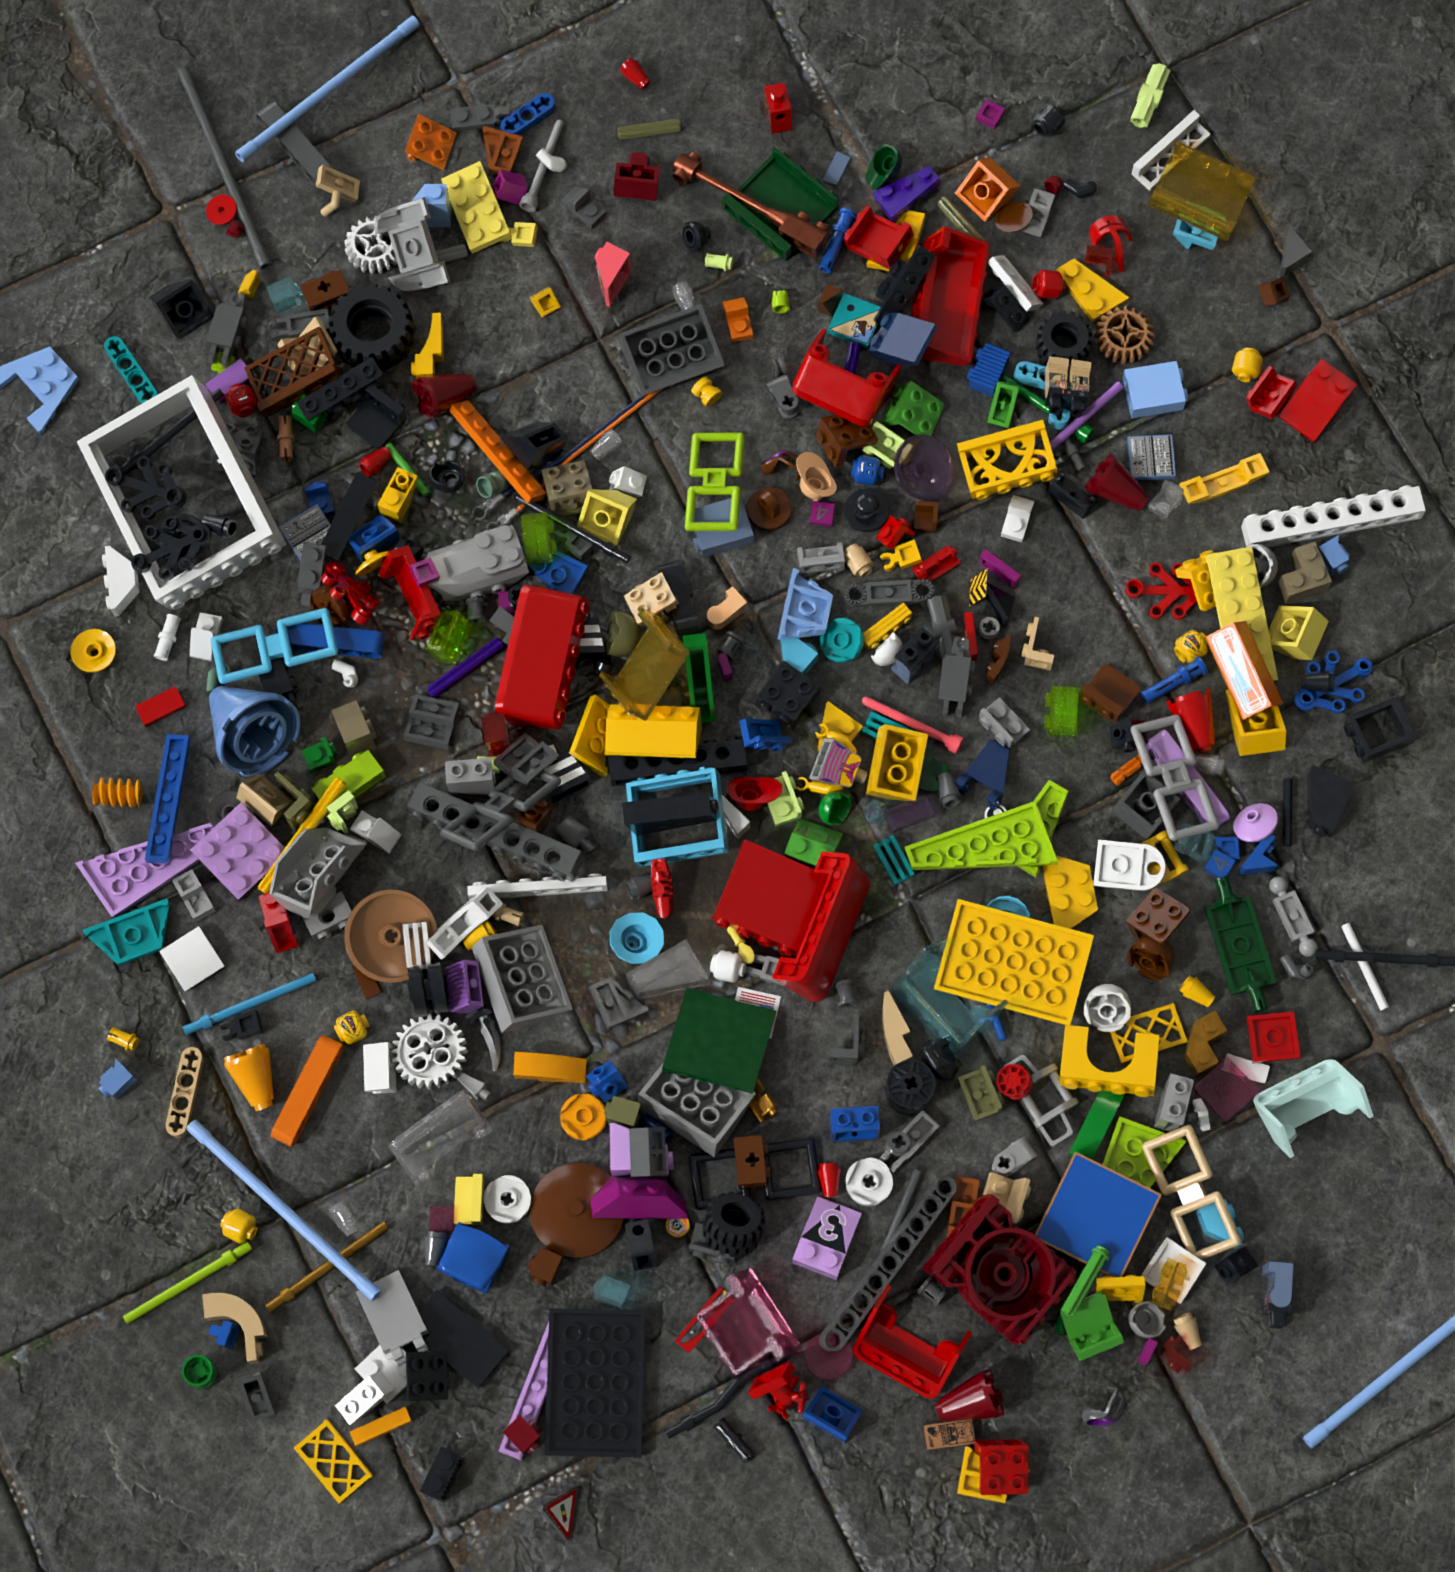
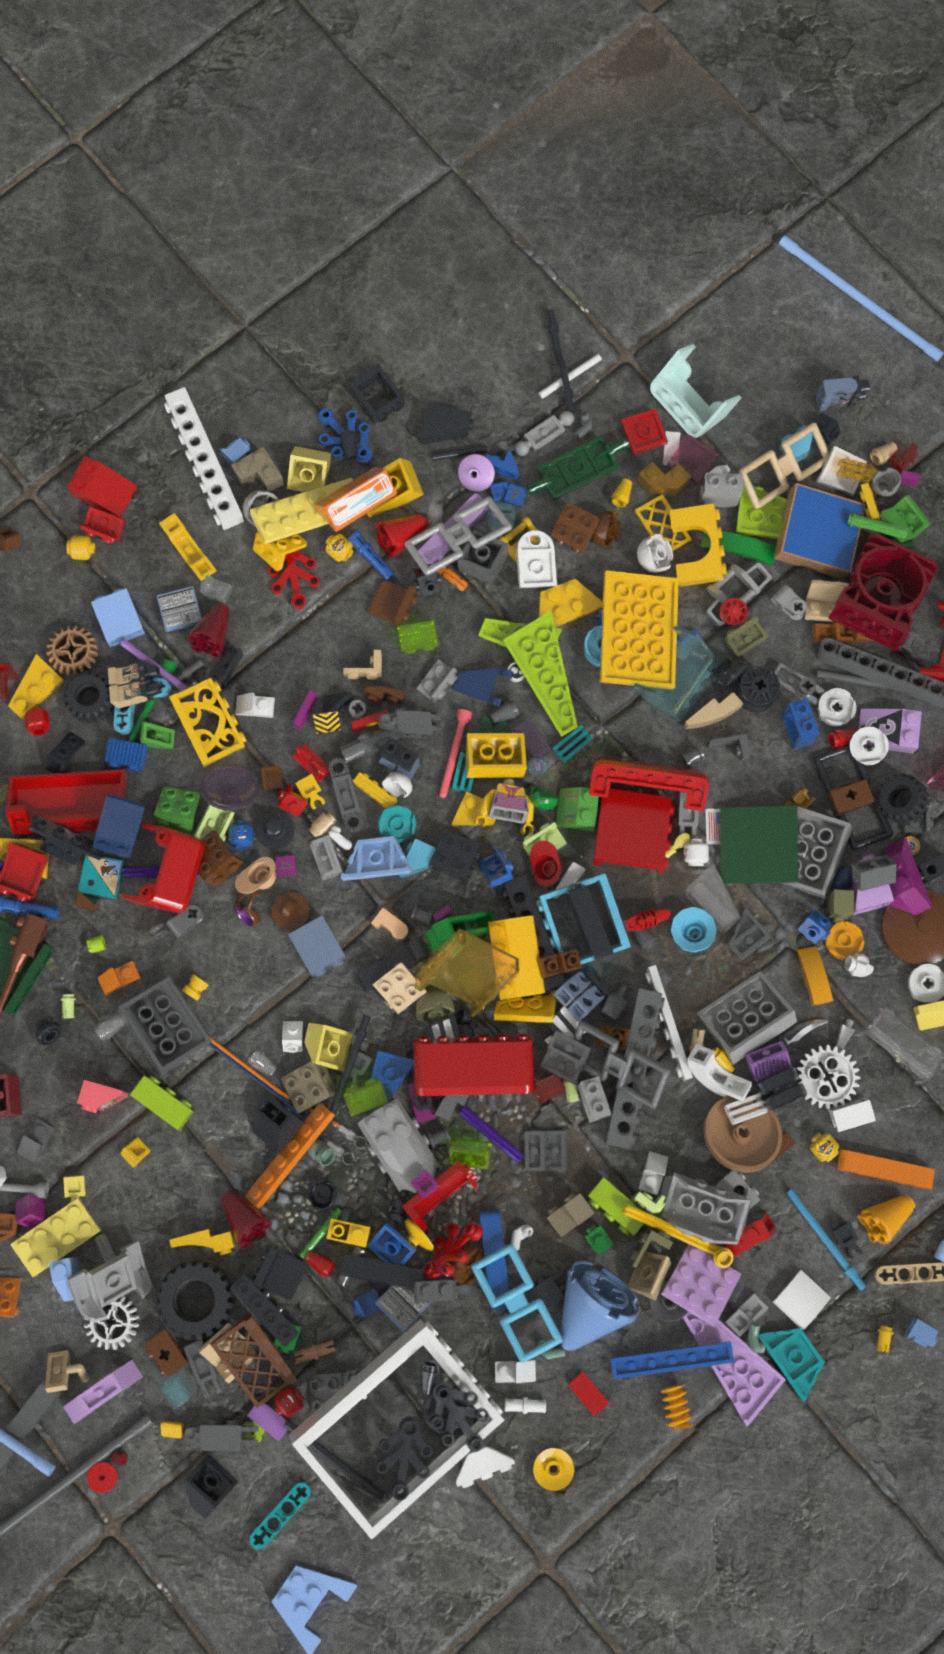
camera: 110 degrees left, 5 degrees up
(164, 891) = (756, 1346): none -> sand green arm
(260, 879) = (723, 1257): none -> yellow plate
(306, 226) = (103, 1391): none -> lavender slope
(548, 1122) = (858, 965): none -> white rock
(589, 335) = (162, 1102): none -> lime brick
(596, 805) = (589, 989): none -> sand blue hips
(633, 775) = (559, 963): none -> reddish brown slope
(714, 482) = (279, 959): lime bar -> none
(801, 1192) = (862, 754): none -> white plate
(835, 574) = (339, 839): none -> white arm
(1015, 283) = (41, 749): white plate -> none

